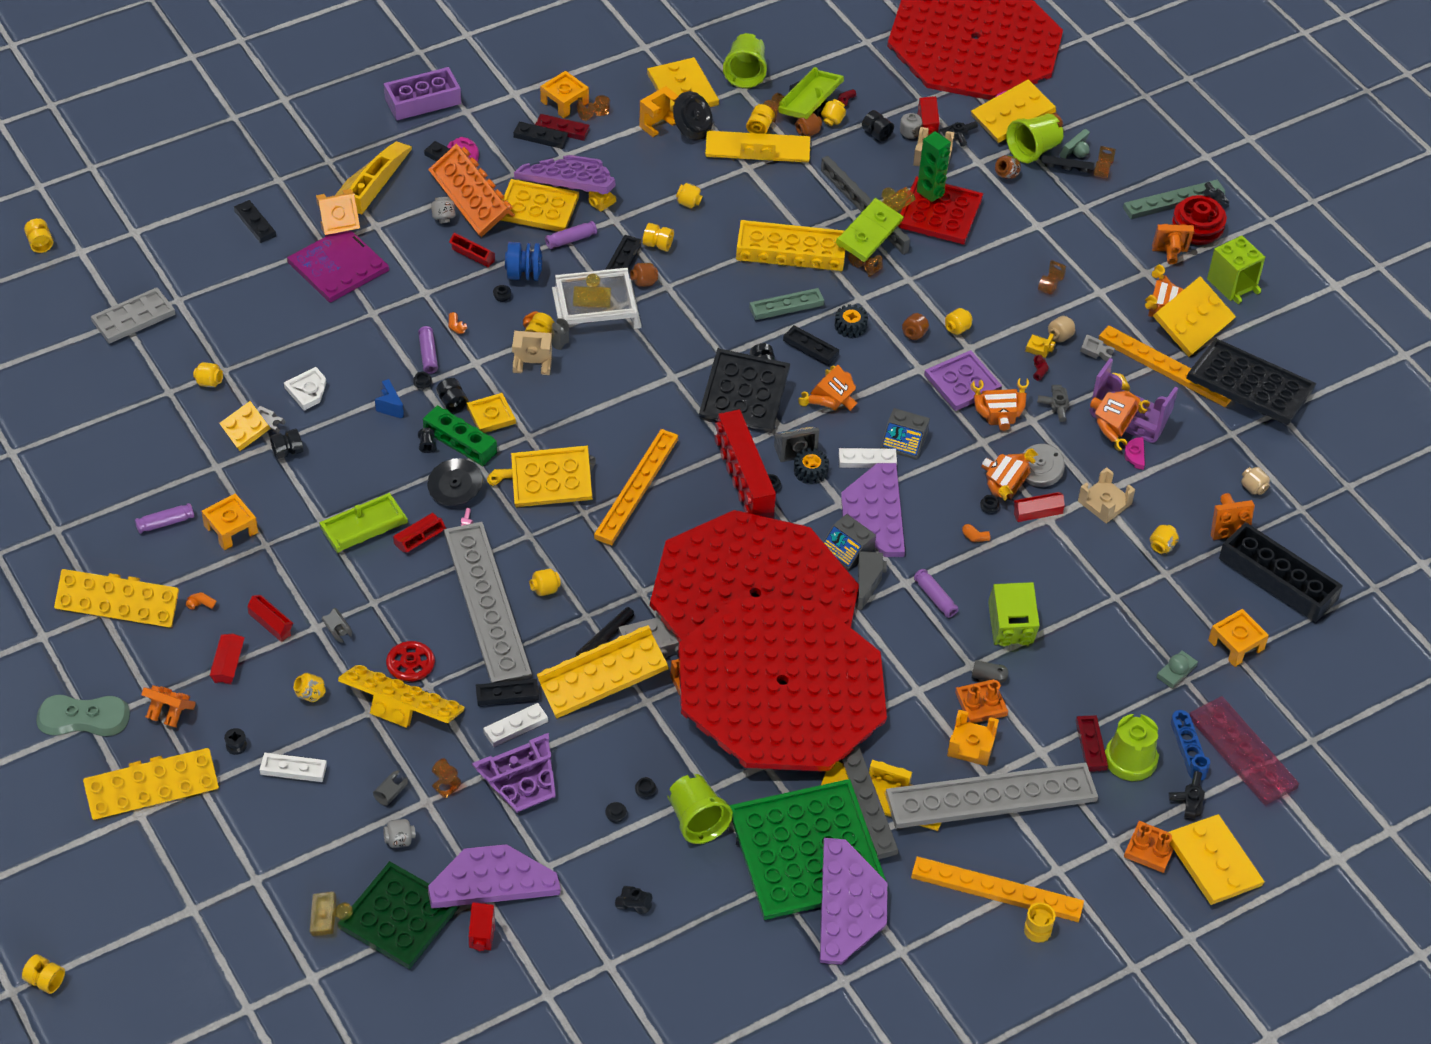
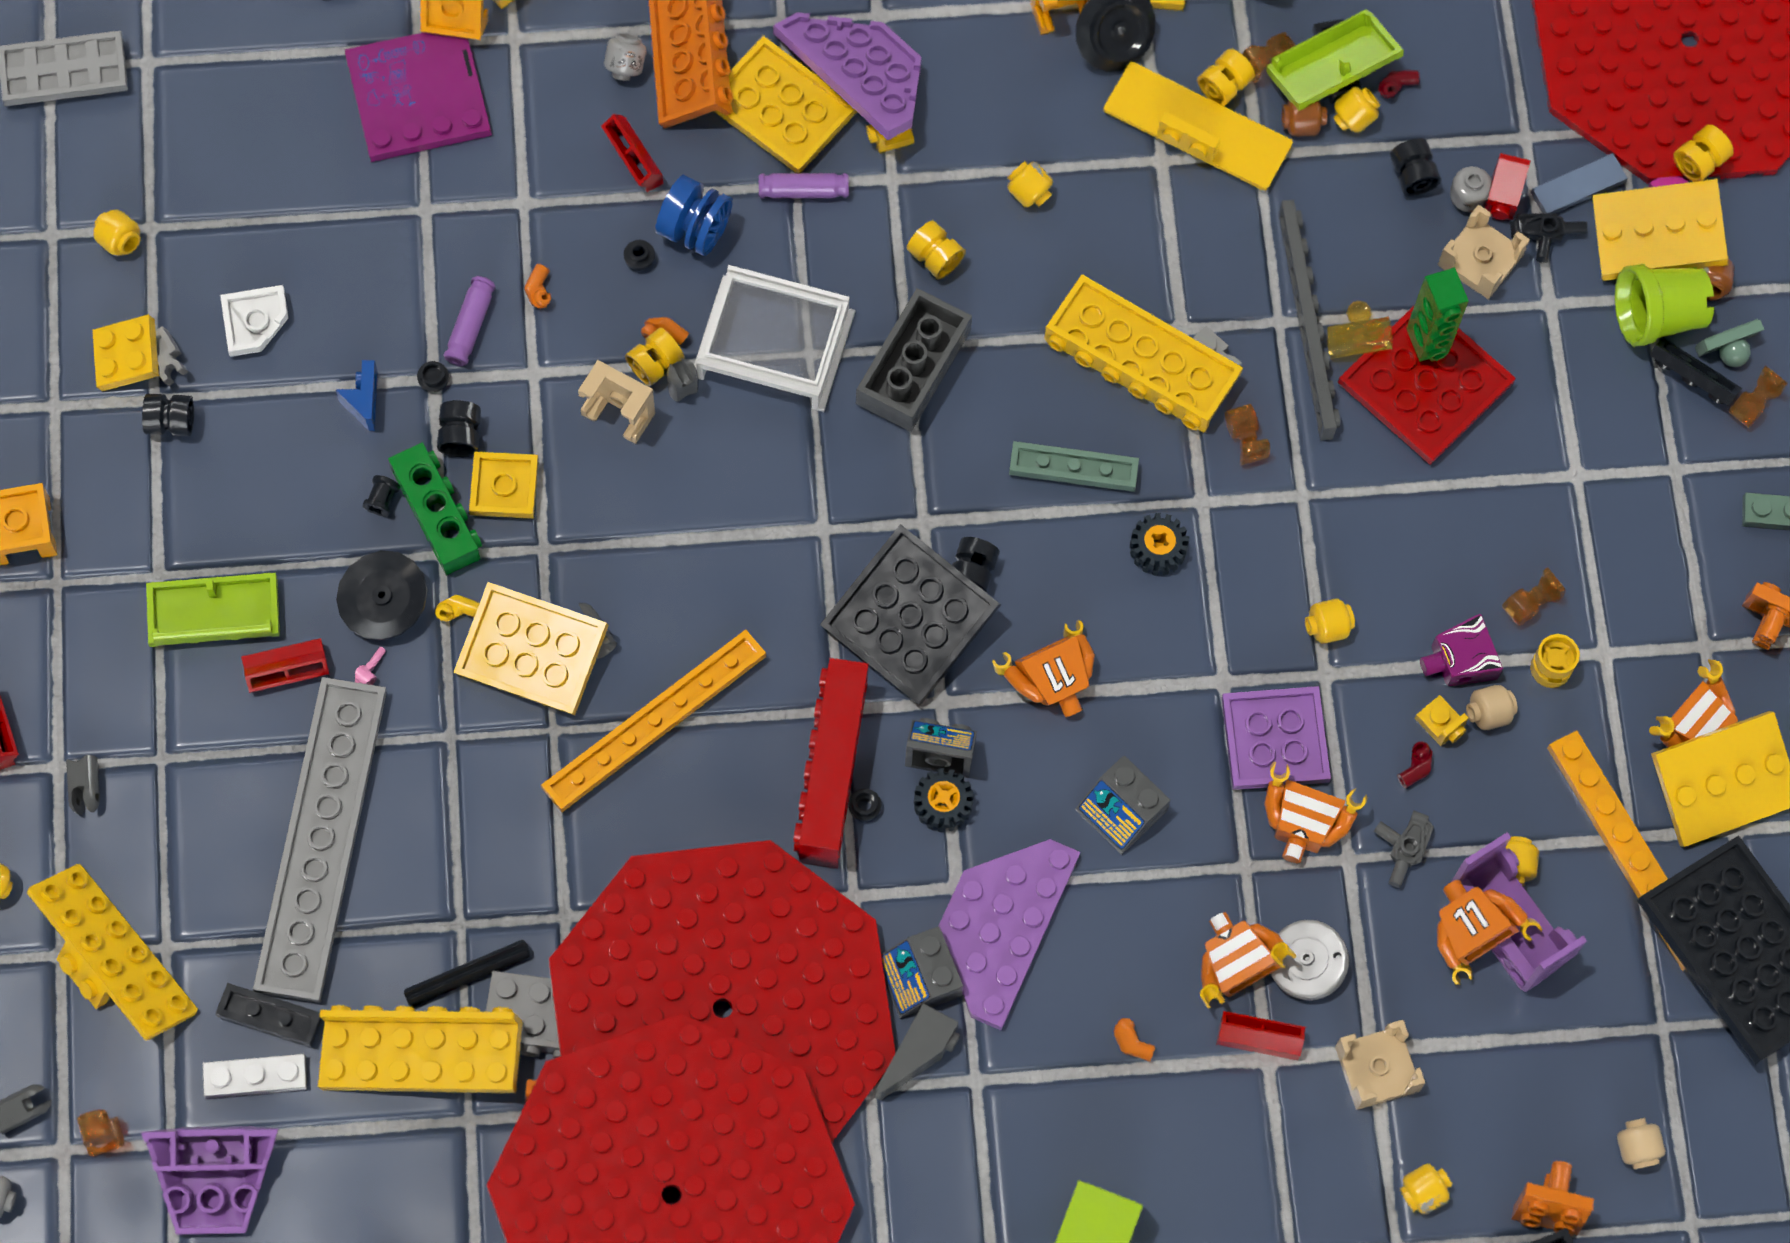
camera: 25 degrees right, 20 degrees up
(410, 675) = (179, 910): red plate -> none
(545, 582) = (422, 841): yellow head -> none
(592, 295) = (763, 331): clear yellow plate -> none
(624, 253) = (864, 262): black plate -> none
(644, 274) = (875, 314): dark orange head -> none
(676, 284) = (913, 359): none -> dark grey brick
(811, 345) = (1069, 564): black plate -> none
(865, 457) = (1042, 819): white plate -> none
(869, 229) = (1276, 385): lime container -> none
(915, 326) = (1255, 600): dark orange head -> none
(936, 593) = (1008, 1126): medium lavender axle -> none
(961, 109) = (1579, 185): none -> sand blue tile
(989, 504) = (1190, 986): black plate -> none
(1007, 167) = (1586, 341): dark orange head -> none
(1014, 71) = (1703, 153): none -> yellow wheel
(1033, 312) = (1464, 654): none -> magenta torso
(1079, 298) = (1554, 660): none -> yellow wheel
(1094, 348) = (1526, 764): light grey plate -> none
(1135, 452) = (1478, 998): dark pink plate -> none

